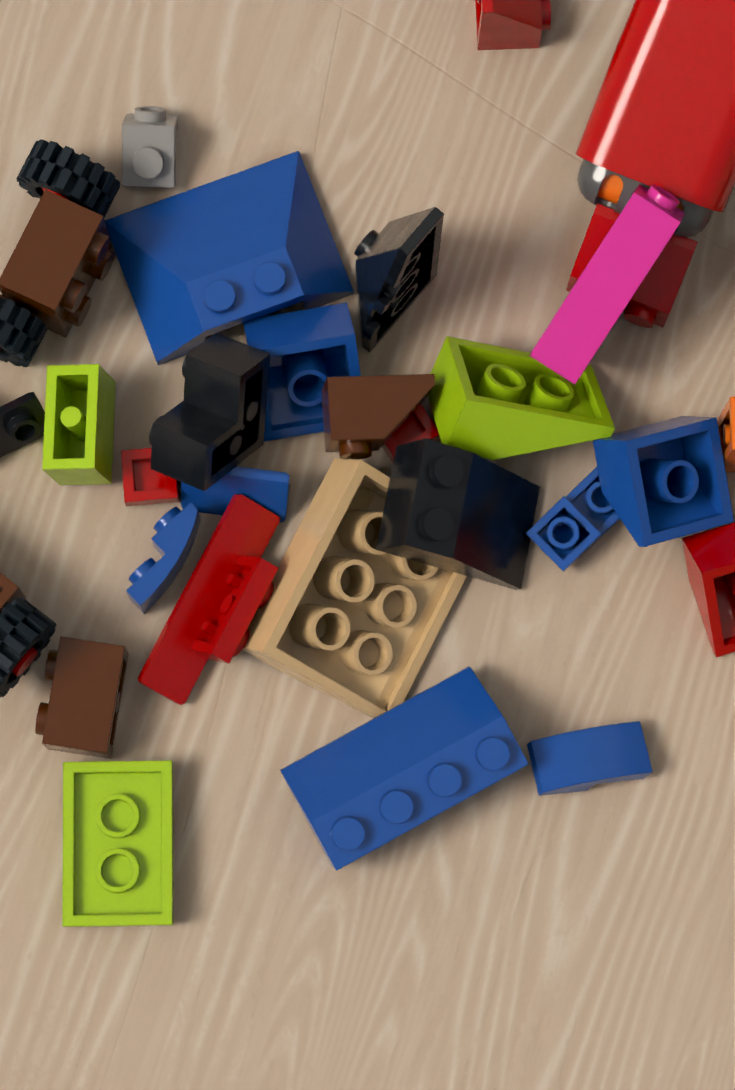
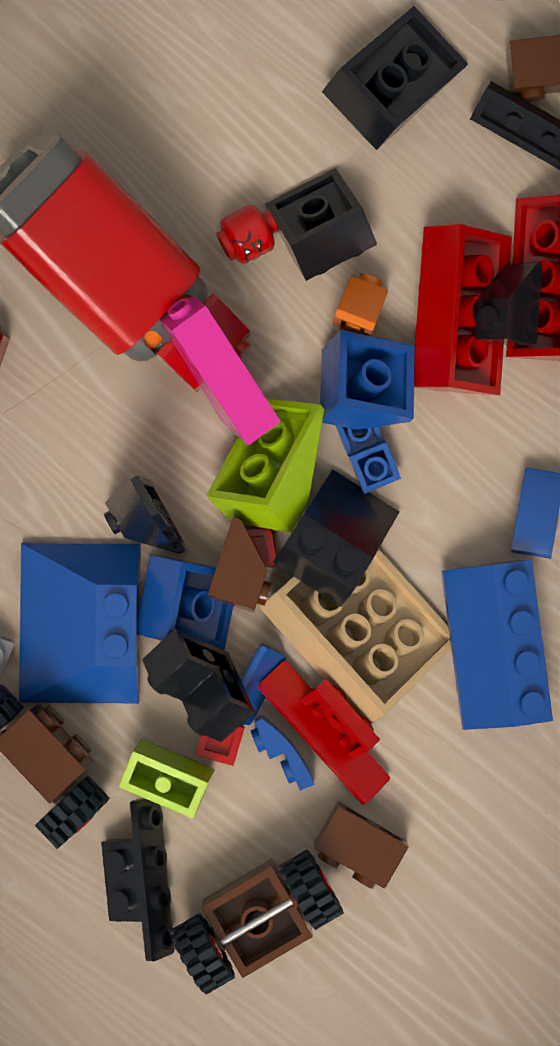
camera: 65 degrees left, 10 degrees up
(118, 844) = (470, 859): lime plate -> none

